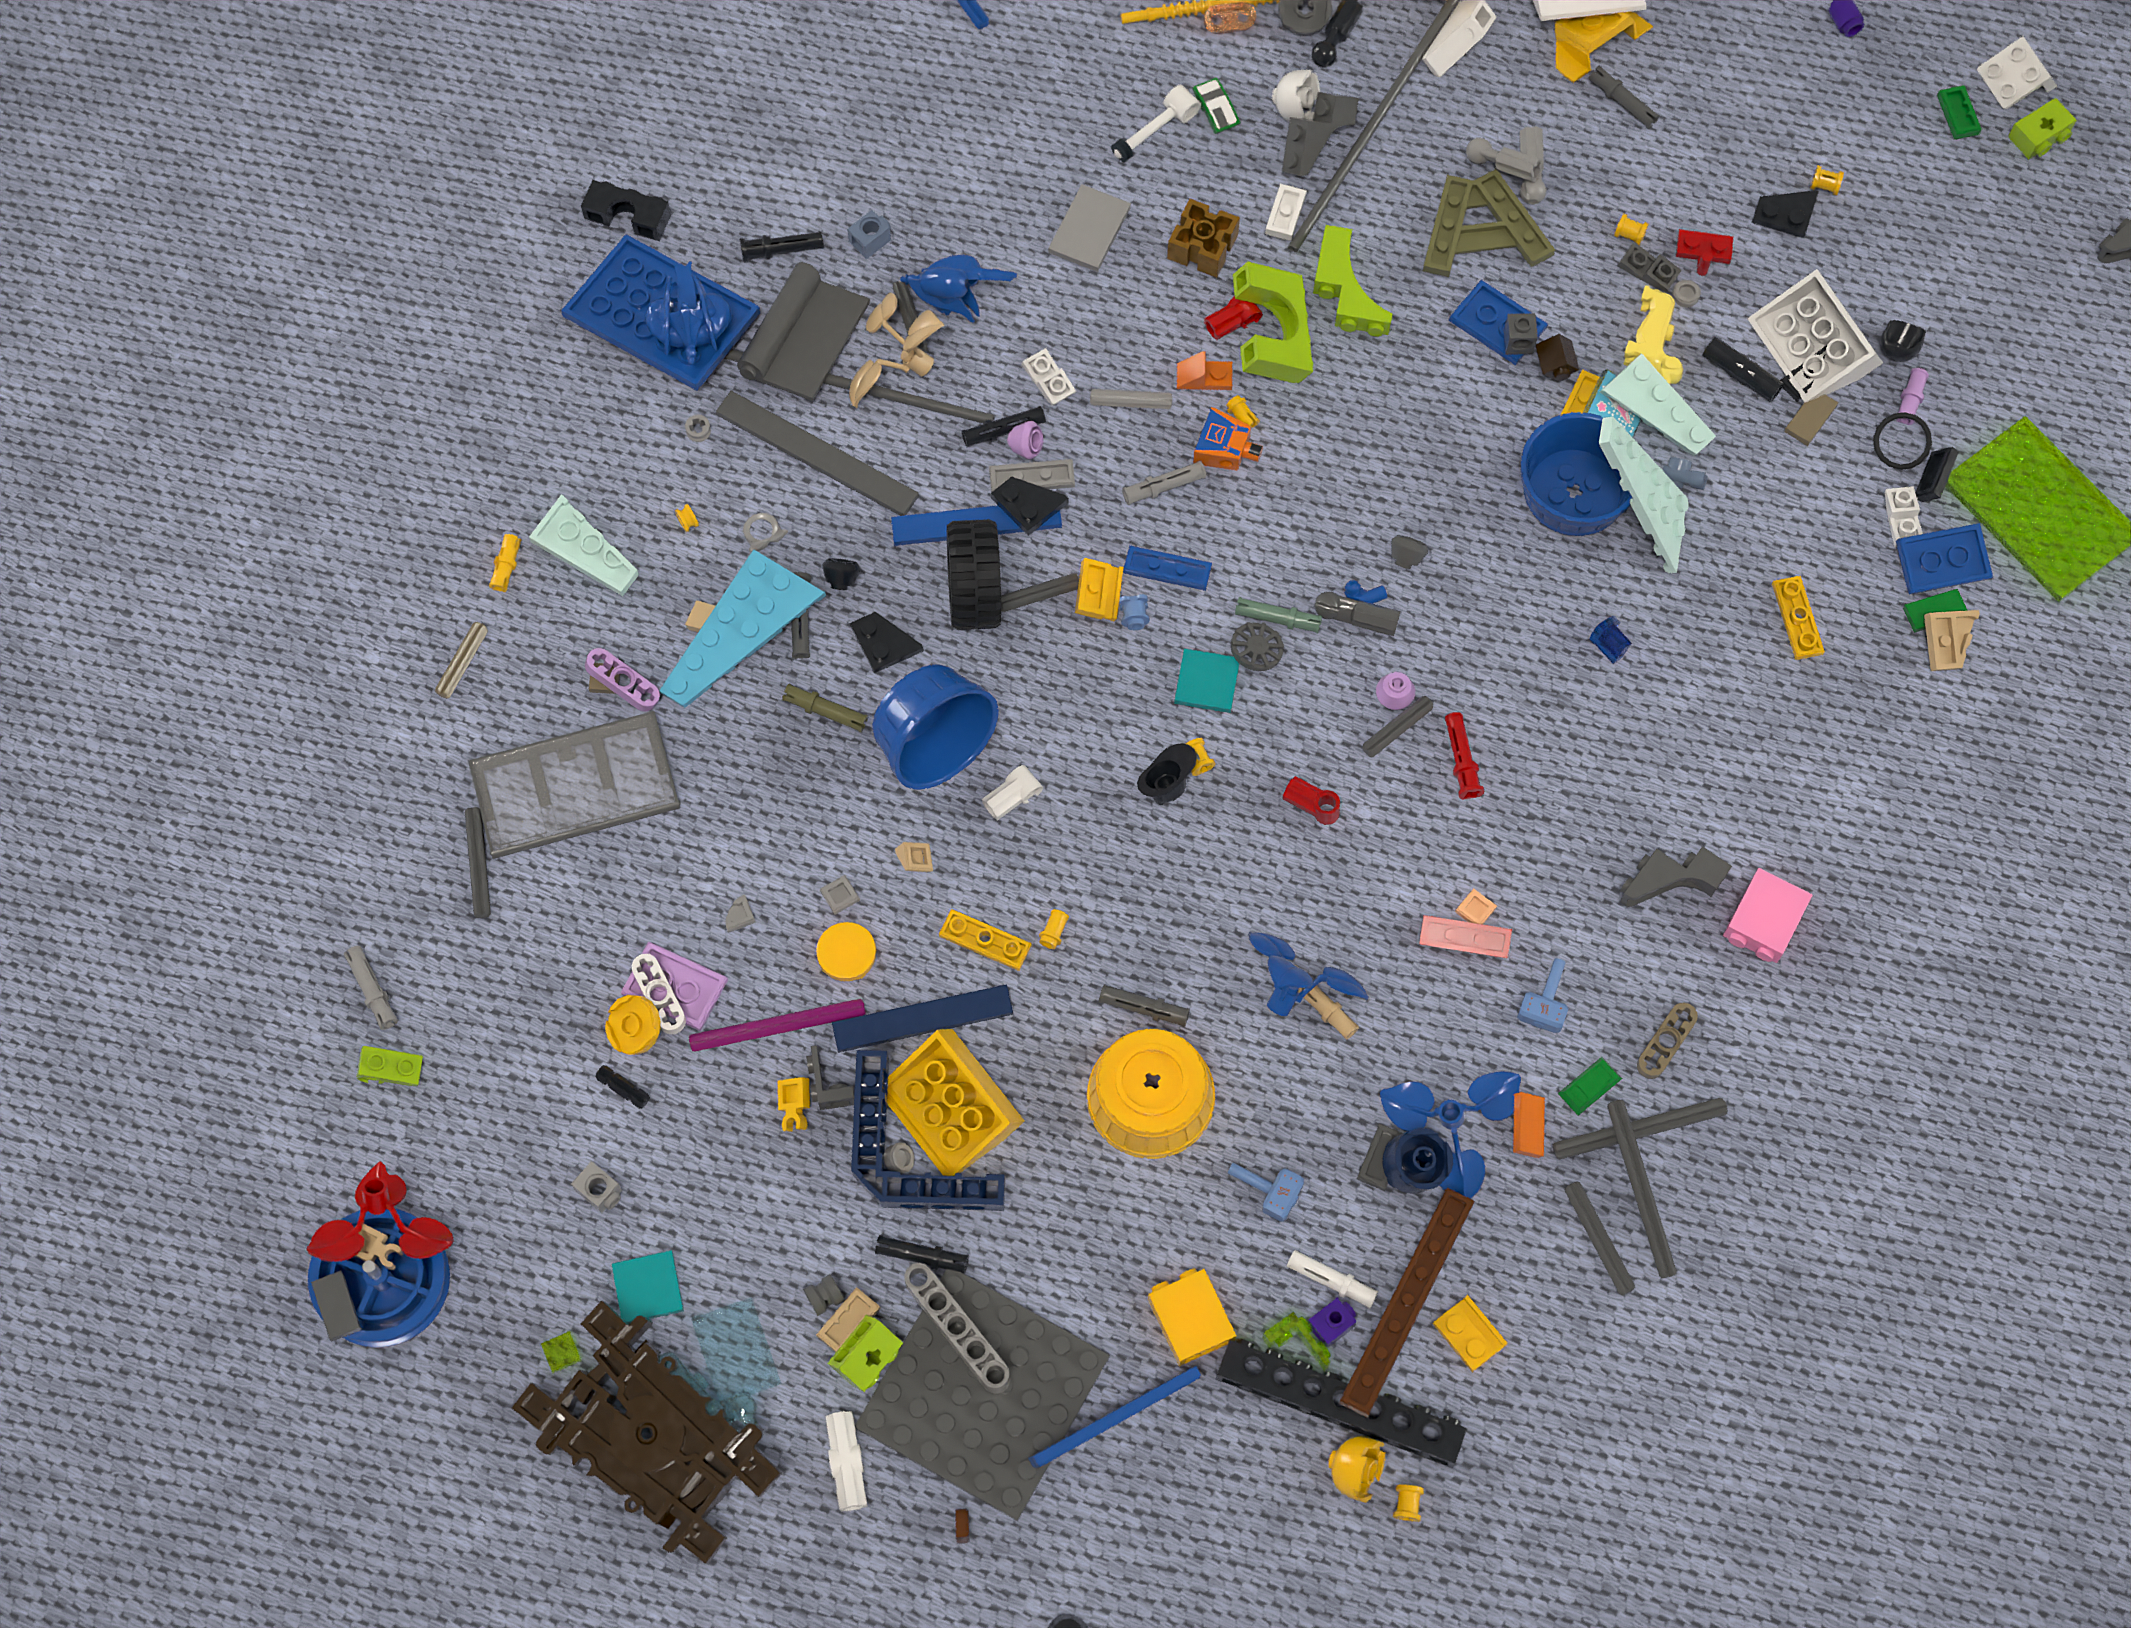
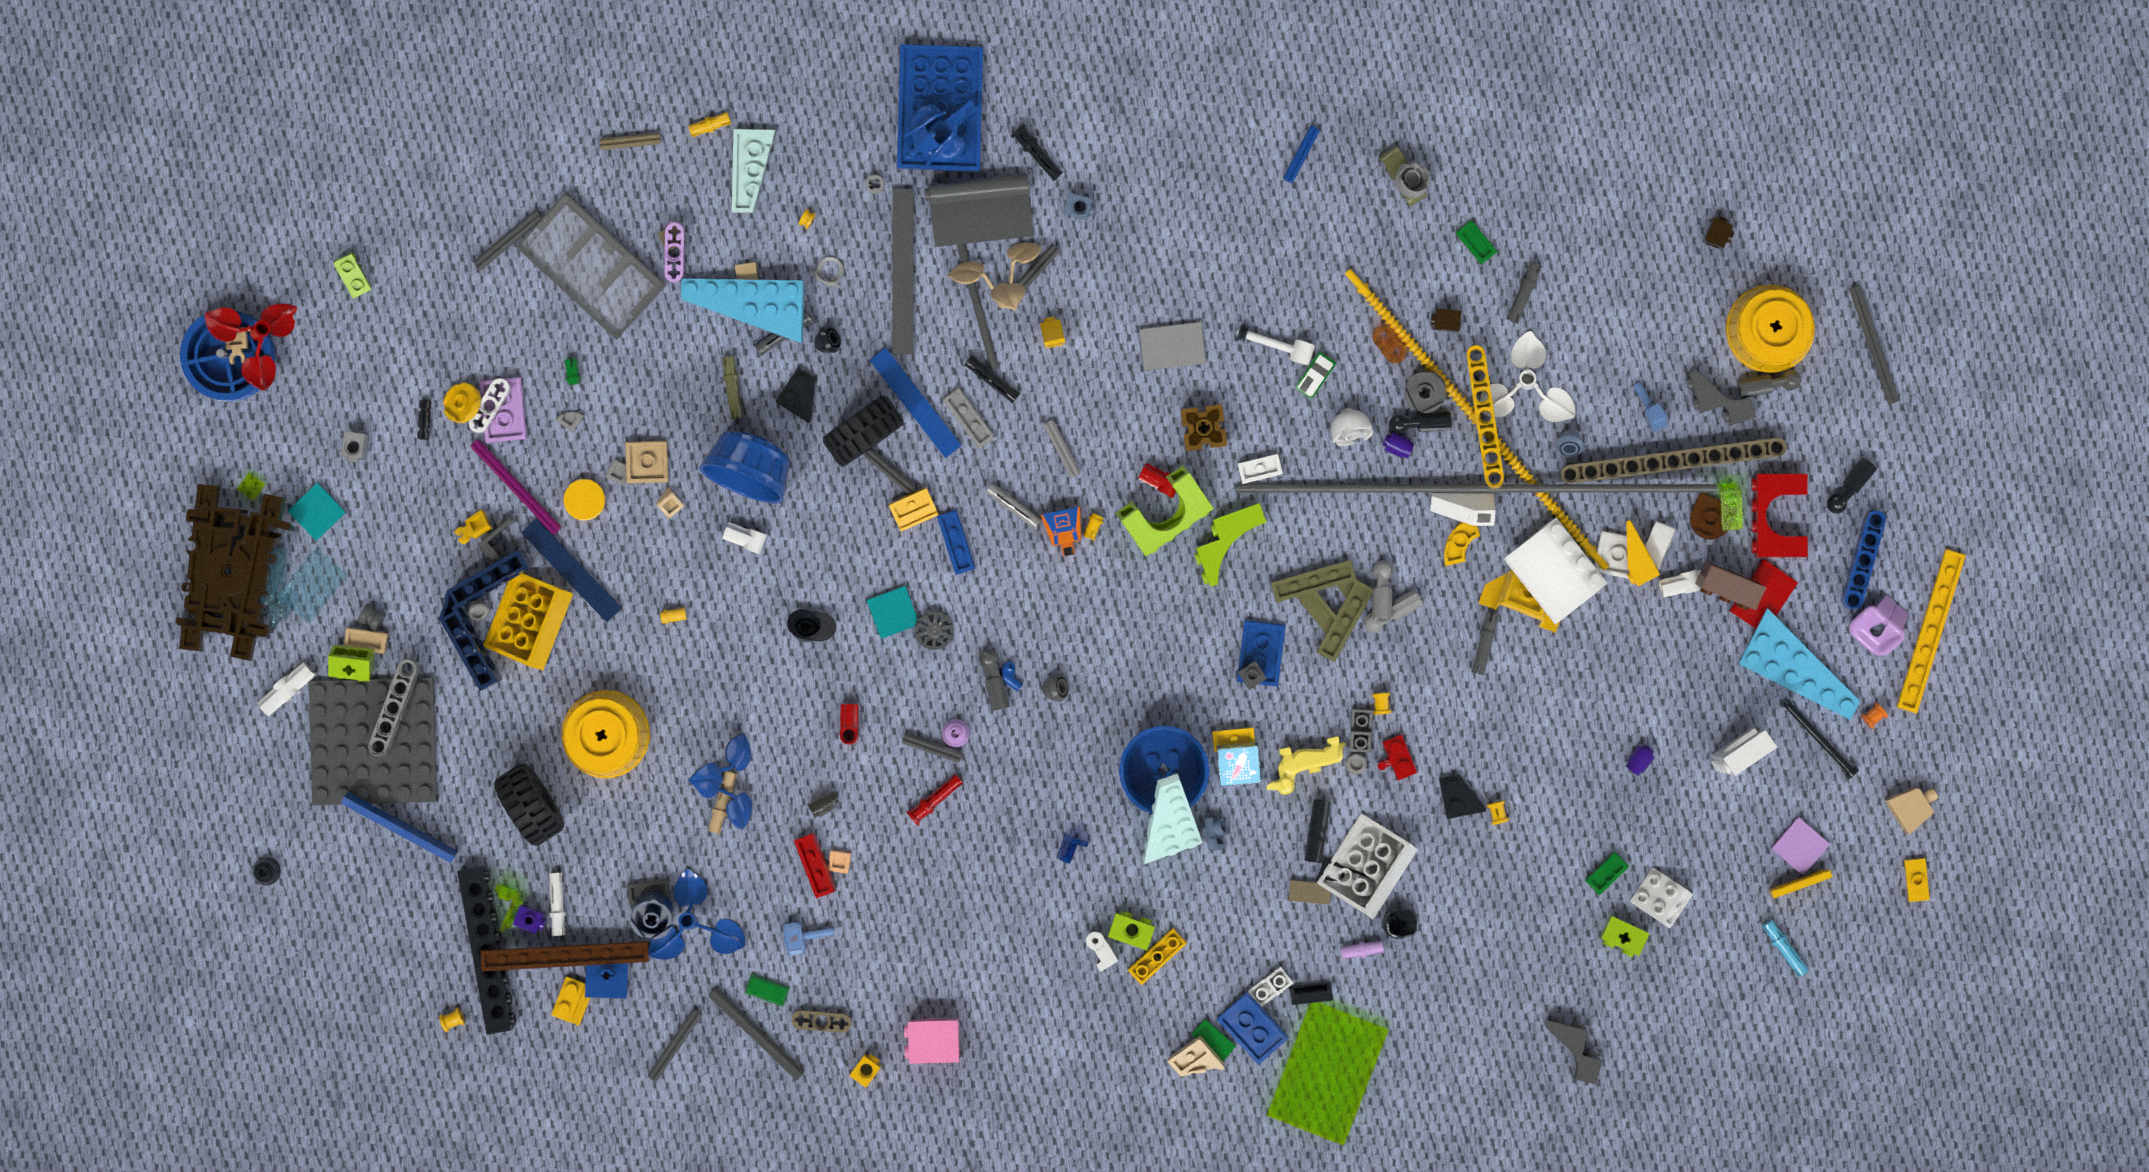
camera: 65 degrees right, 20 degrees up
(336, 1306) = (192, 346): dark grey tile -> none
(375, 996) = (393, 230): light grey pin -> none
(606, 200) = (999, 17): black arch -> none
(688, 879) = (572, 372): none -> green pin
(848, 854) = (646, 462): none -> tan tile
(917, 1253) = (429, 658): black pin -> none
(949, 281) = (1073, 283): blue hair -> none
(962, 1525) = (290, 776): reddish brown tile -> none
(995, 331) = (1052, 333): none -> yellow slope
(1001, 947) = (642, 564): yellow tile -> none
(1026, 439) = (989, 400): lavender cone -> none
(1028, 503) = (944, 428): black wing -> none
(1048, 377) = (1045, 386): white slope -> none
(1134, 611) = (910, 541): medium blue brick -> none
(1144, 1005) = (658, 702): dark grey pin -> none
(1186, 1220) = (529, 804): none -> black tyre
(1191, 1316) = (485, 835): yellow brick -> none
(1203, 374) = (1107, 485): orange slope -> none
(1205, 763) = (838, 637): yellow bush -> none
(1281, 1194) = (589, 846): medium blue piece -> none
(1290, 617) = (963, 631): sand green pin -> none
(1309, 136) = (1325, 453): dark grey arch -> none
(1347, 65) = (1398, 445): none -> dark purple brick
(1354, 1463) = (453, 979): yellow cylinder -> none
(1393, 884) = (823, 803): none -> clear smoke brick
(1468, 1272) = (606, 981): none -> blue tile
(1492, 67) = (1458, 542): none -> yellow tile
(1529, 1125) = (718, 967): orange tile -> none
(1557, 357) = (1251, 707): dark brown brick -> none
(1642, 1189) = (717, 1054): dark grey axle -> none
(1654, 400) = (1253, 788): light aqua wing -> none
(1662, 873) = (925, 961): dark grey arch -> none
(1744, 638) = (1140, 939): none -> lime brick
(1755, 1031) = (859, 1076): none -> yellow brick
(1757, 670) = (1098, 943): none -> white leg
(1897, 416) = (1307, 962): black piece -> none

